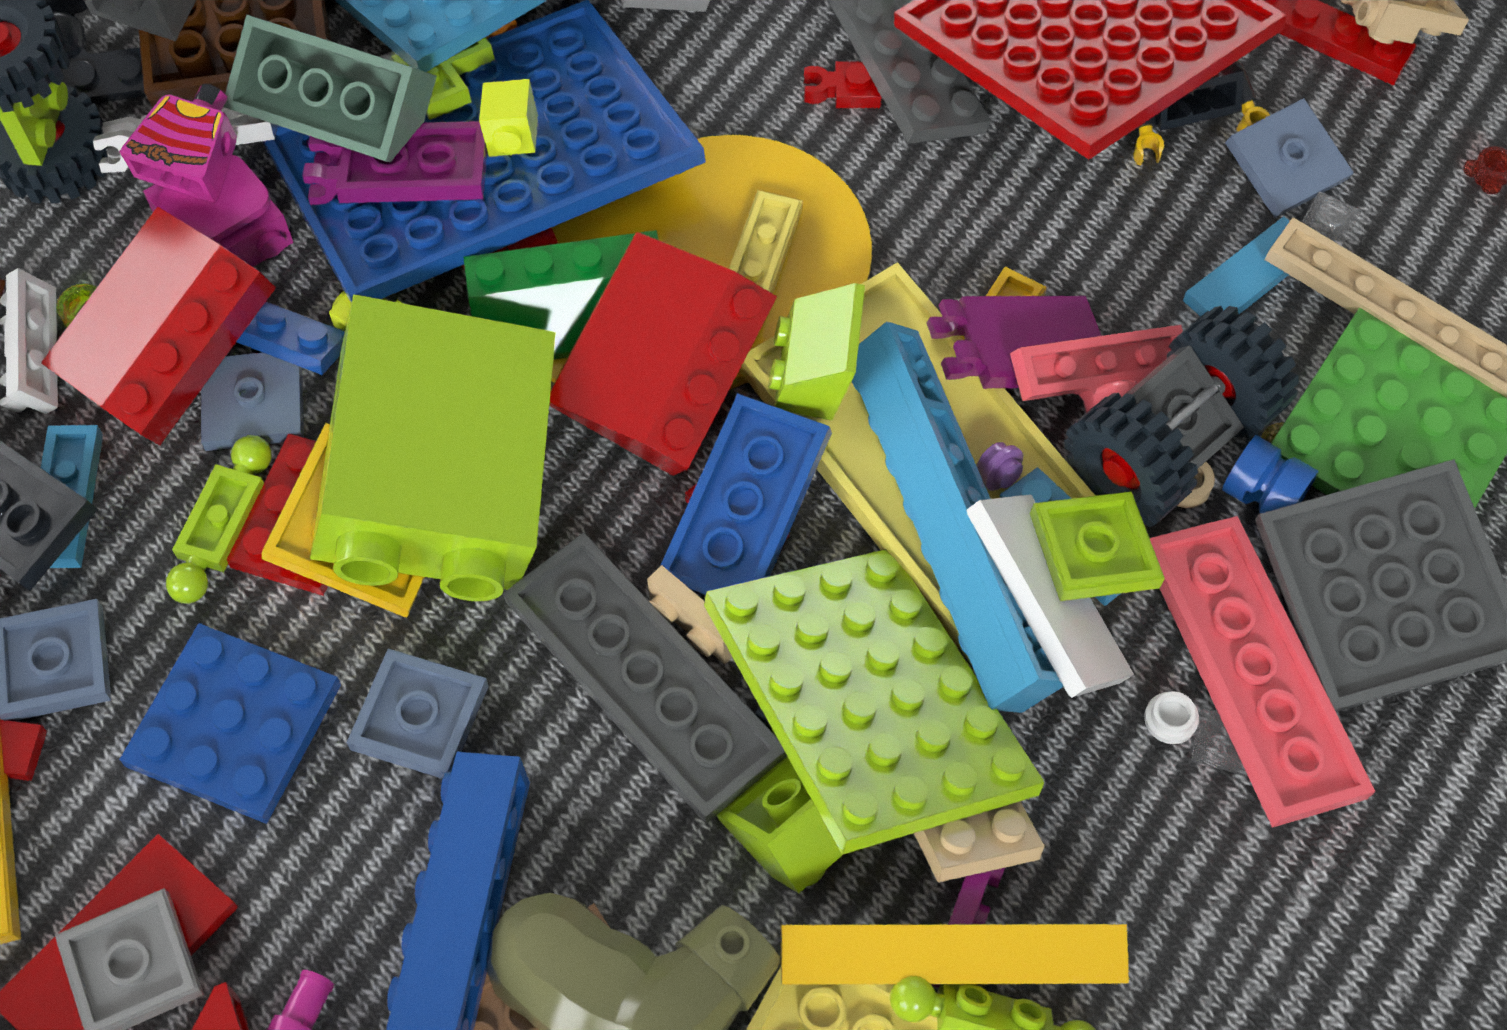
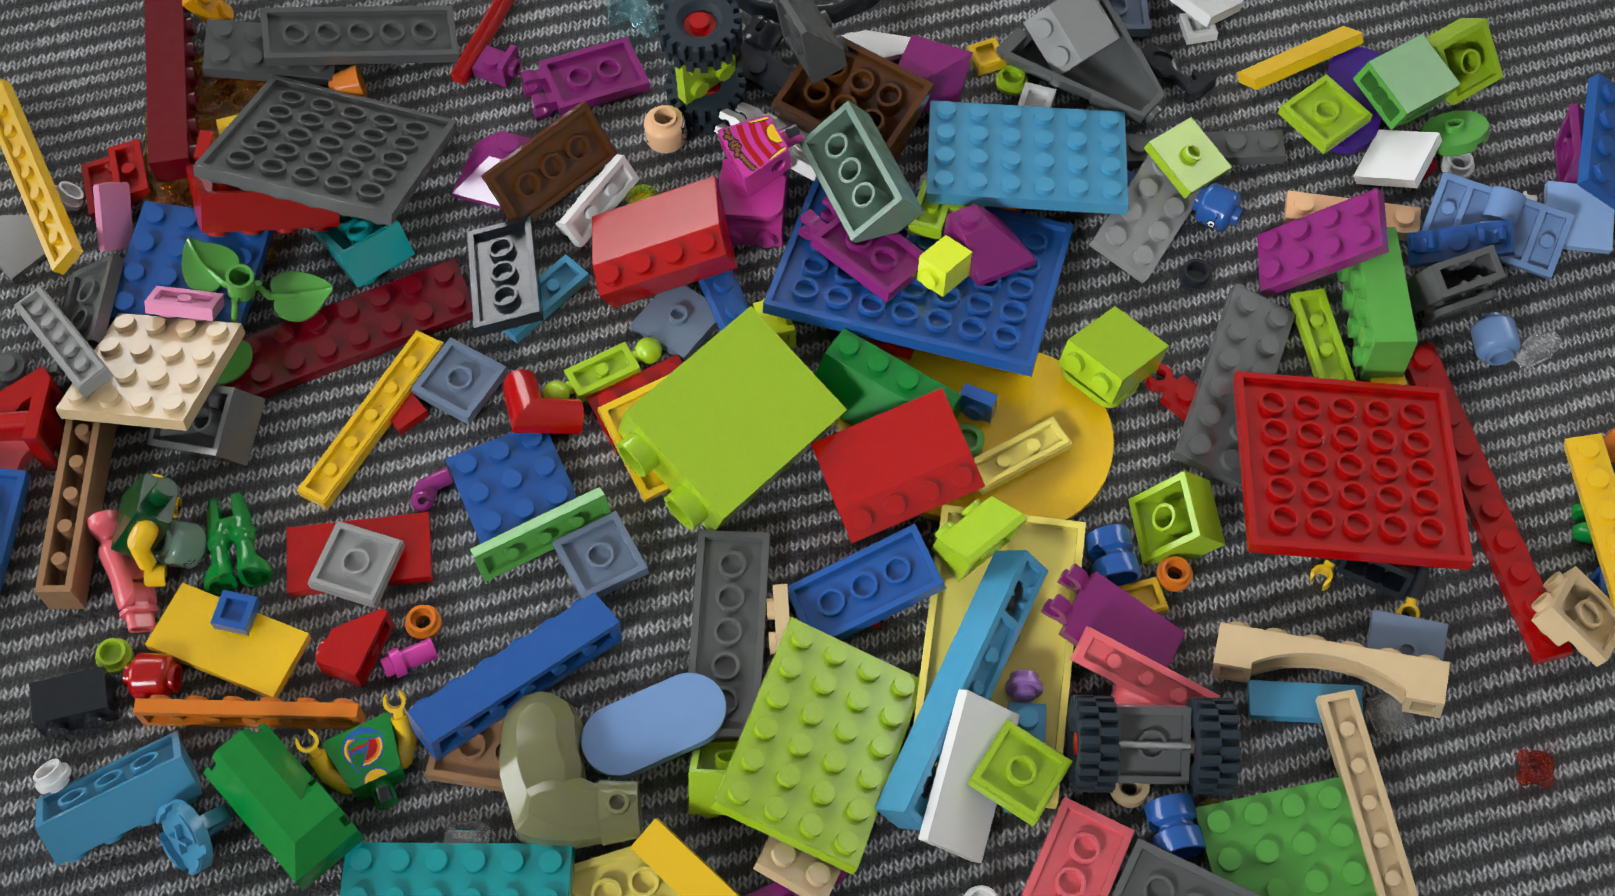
camera: 45 degrees right, 0 degrees up
(38, 210) = (665, 129): none -> light nougat head
(129, 810) = (427, 489): none -> magenta arm
(186, 621) = (535, 414): none -> red brick
(264, 951) = (421, 613): none -> orange plate
(321, 749) = (537, 534): none -> bright green plate
(550, 67) = (992, 243): none -> magenta slope
(667, 836) = (654, 726): none -> medium blue tile
(675, 228) = (978, 403): none -> blue plate
(759, 92) = (1111, 358): none -> lime brick
(946, 275) = (1112, 556): none -> blue wheel
(970, 199) = (1176, 519): none -> lime slope
(1020, 241) = (1177, 565): none -> orange plate
(1335, 169) = (1412, 680): none -> tan arch

